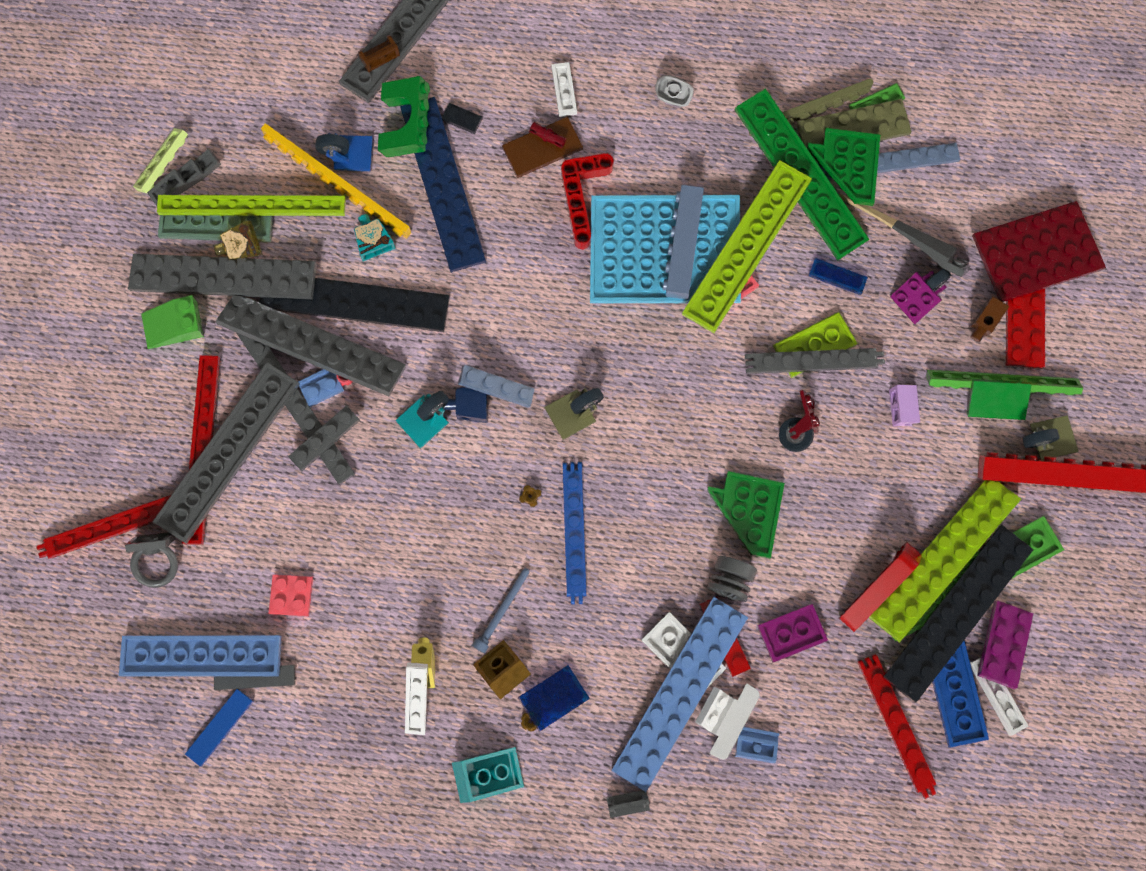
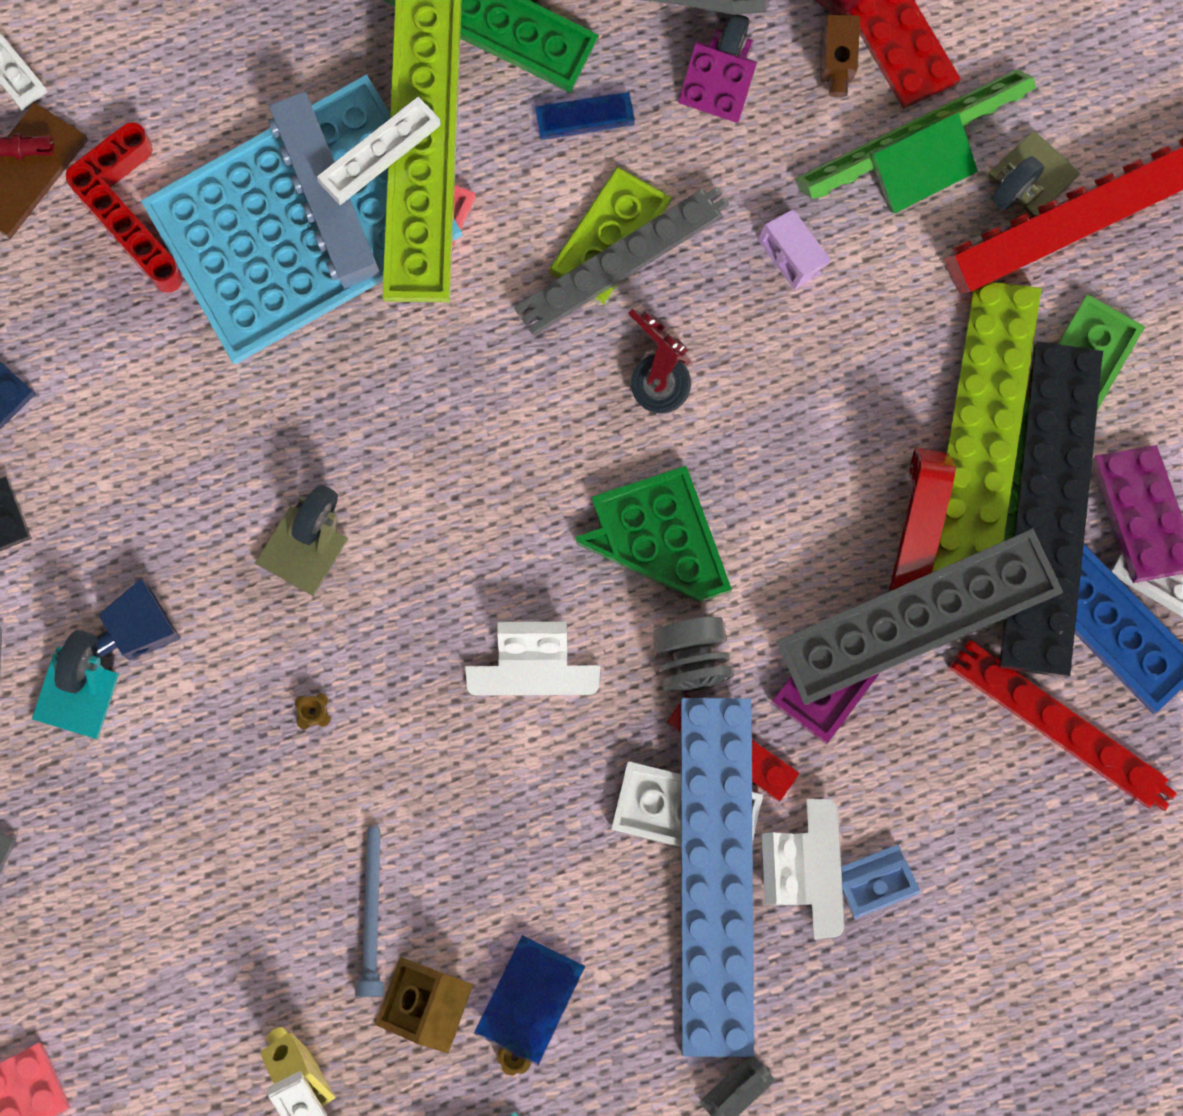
camera: 30 degrees left, 0 degrees up
(496, 386) = (159, 574): sand blue plate -> none
(574, 532) = (413, 726): blue hinge -> none
(650, 536) = (532, 664): none -> white plate
(723, 238) = (378, 151): none -> white plate
(857, 627) = (919, 617): none -> dark grey plate

